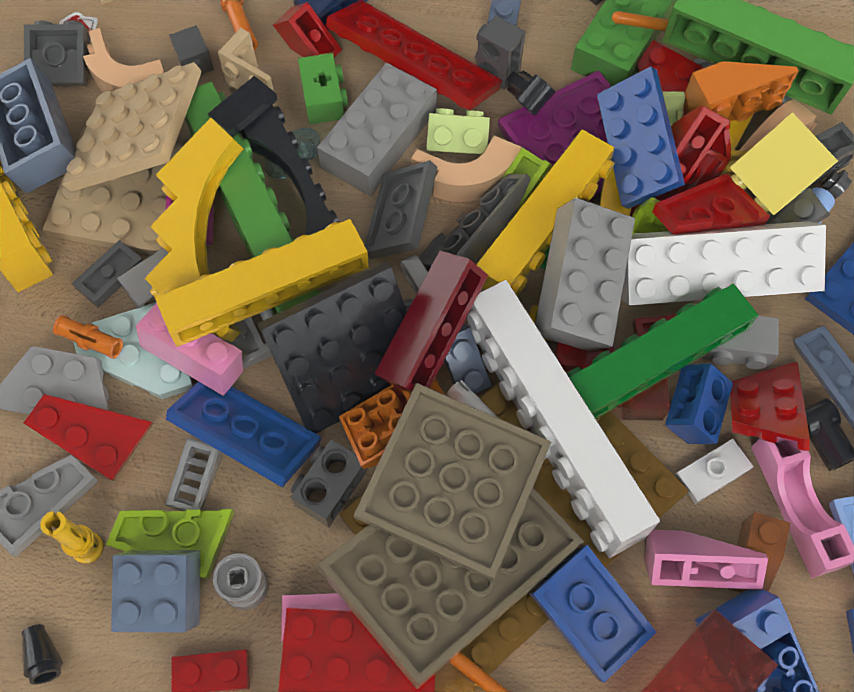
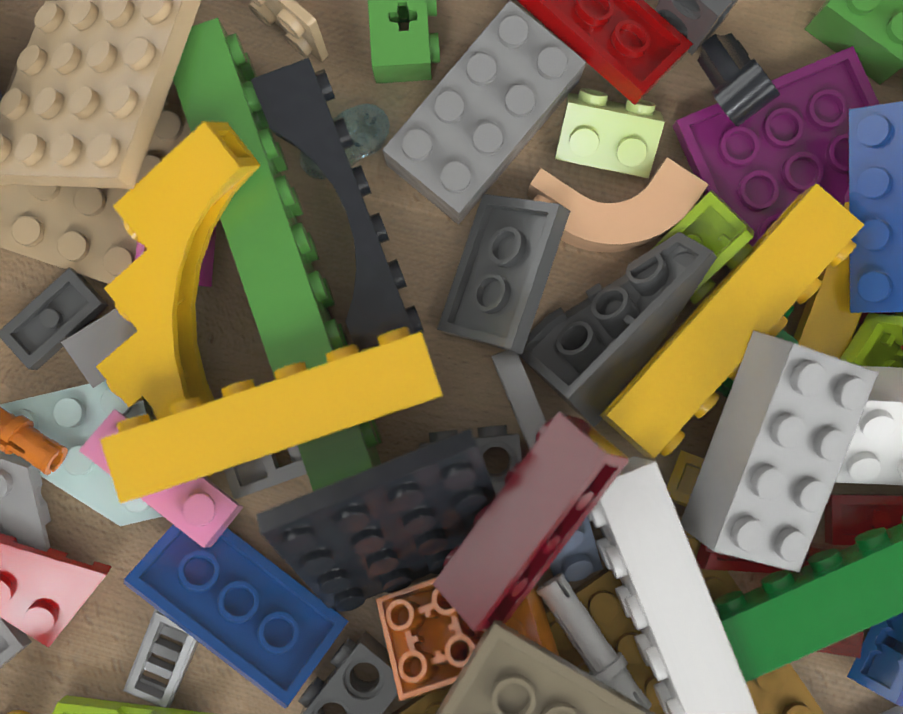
camera: 10 degrees right, 20 degrees up
(243, 106) = (265, 78): black tile -> none

